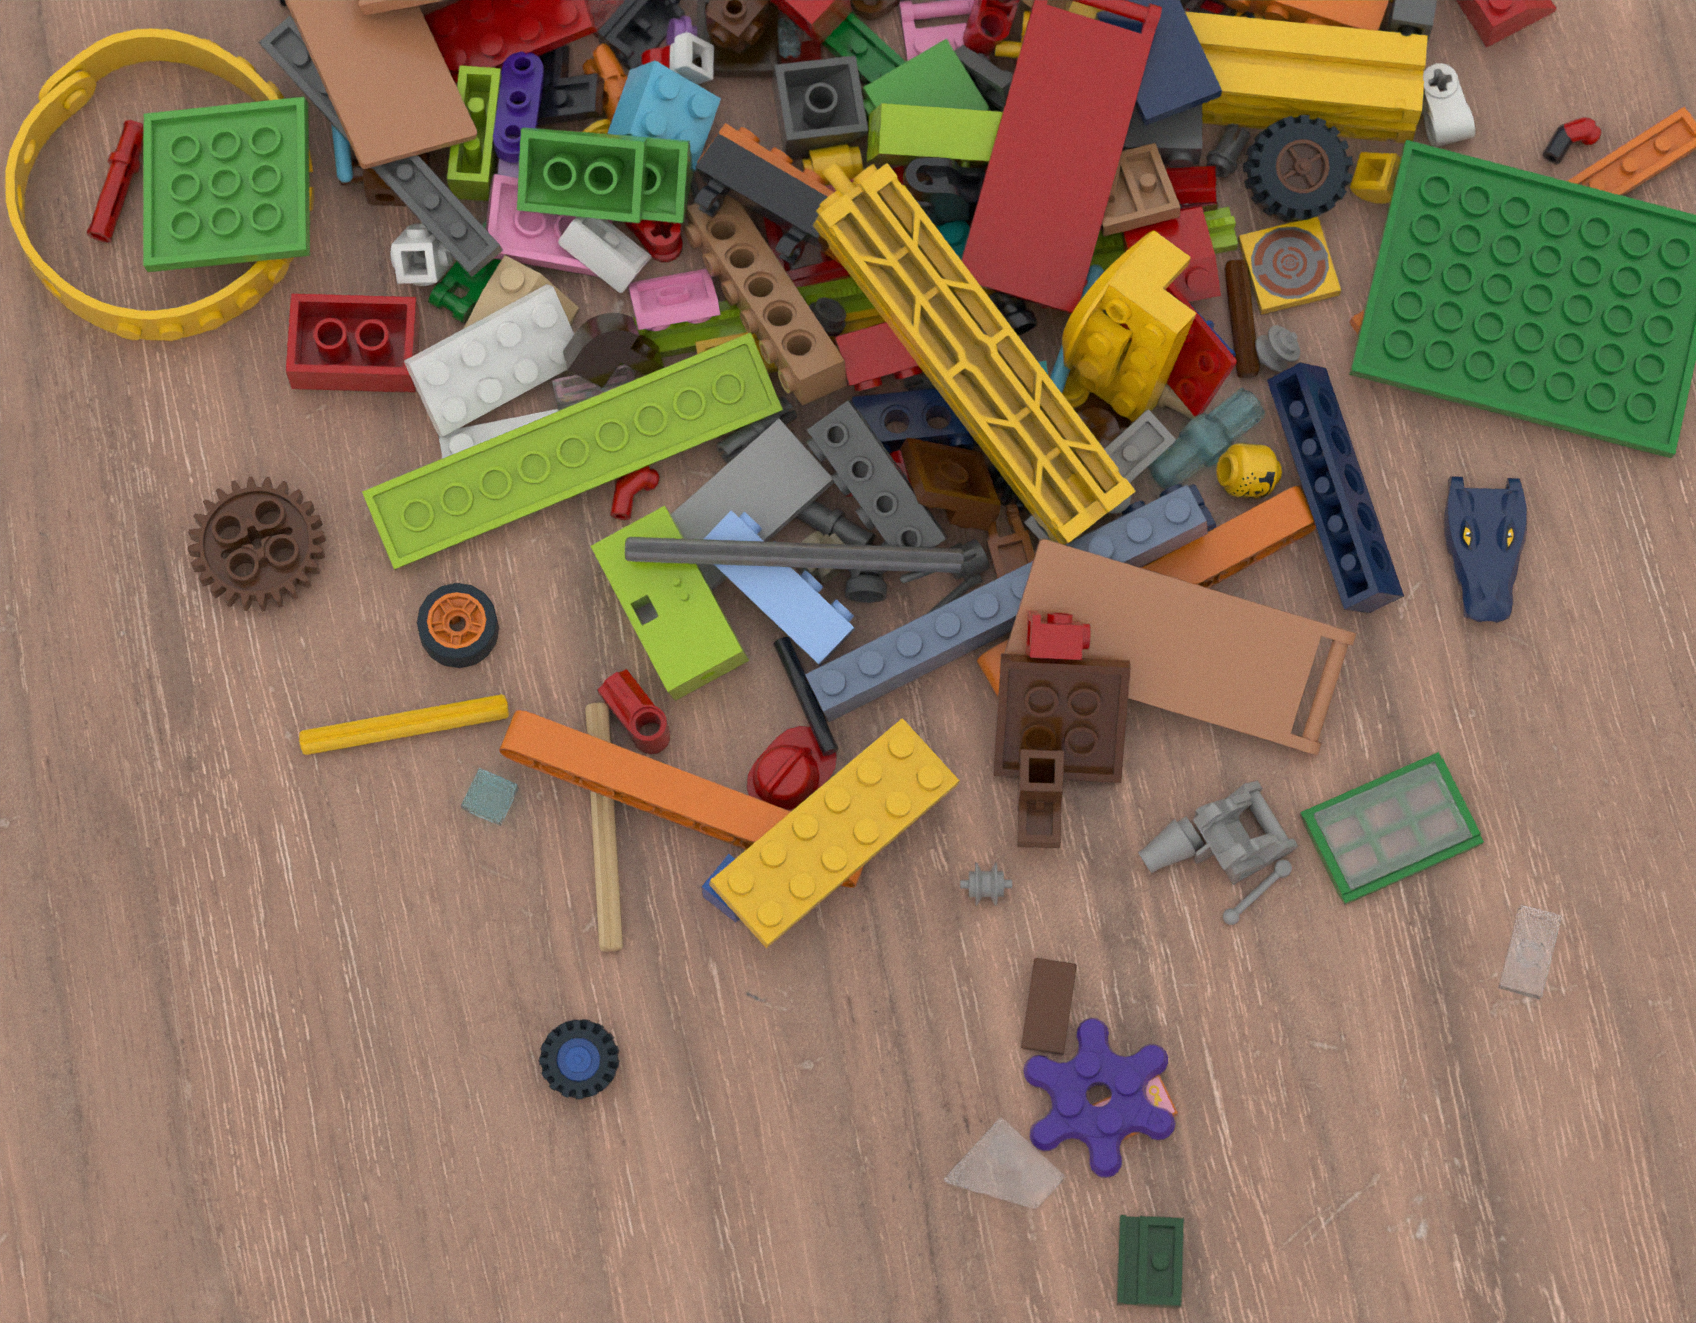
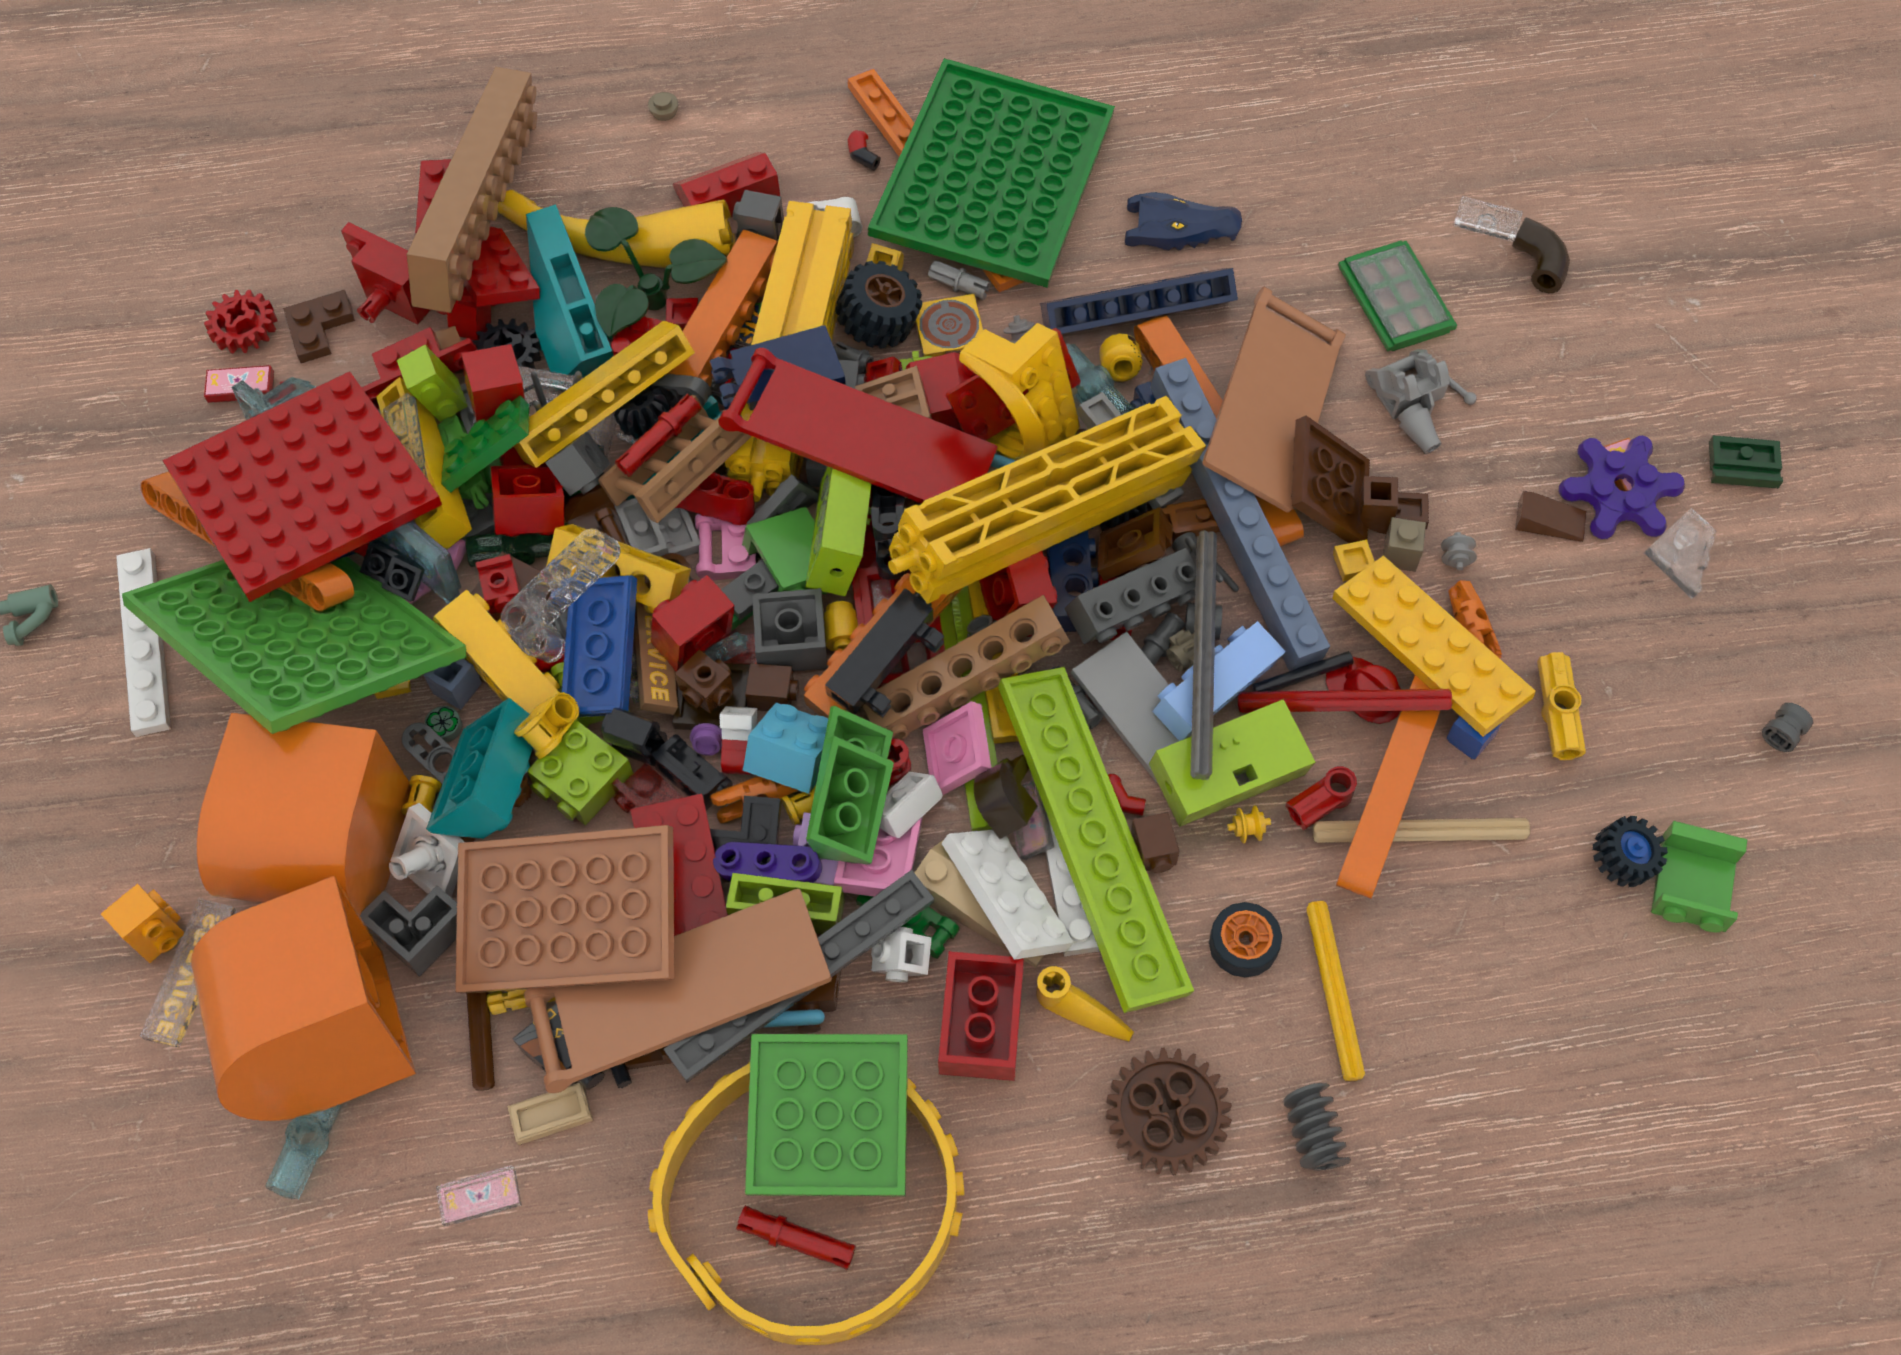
camera: 85 degrees left, 10 degrees down
(237, 695) = (1314, 1128): none -> dark grey piece
(379, 450) = (1078, 1005): none -> yellow piece
(489, 796) = (1398, 920): clear light blue tile -> none
(550, 1140) = (1698, 877): none -> bright green panel
(569, 524) = (1156, 842): none -> reddish brown brick
(599, 628) = (1249, 824): none -> yellow wheel
(742, 995) = (1563, 724): none -> yellow piece
(749, 96) = (770, 685): none -> reddish brown brick
(752, 1264) = (1785, 730): none -> dark grey wheel
(754, 731) = (1349, 700): none -> red axle
(872, 53) = (753, 581): none -> dark grey plate
(905, 896) = (1472, 615): none -> orange hinge
(967, 757) = (1352, 558): none -> yellow plate
(988, 814) = (1404, 543): none -> dark tan brick
(1056, 637) = (1281, 464): red brick -> none
(1360, 273) = (959, 279): none -> light grey axle
(1476, 1028) = (1549, 253): none -> dark brown cylinder

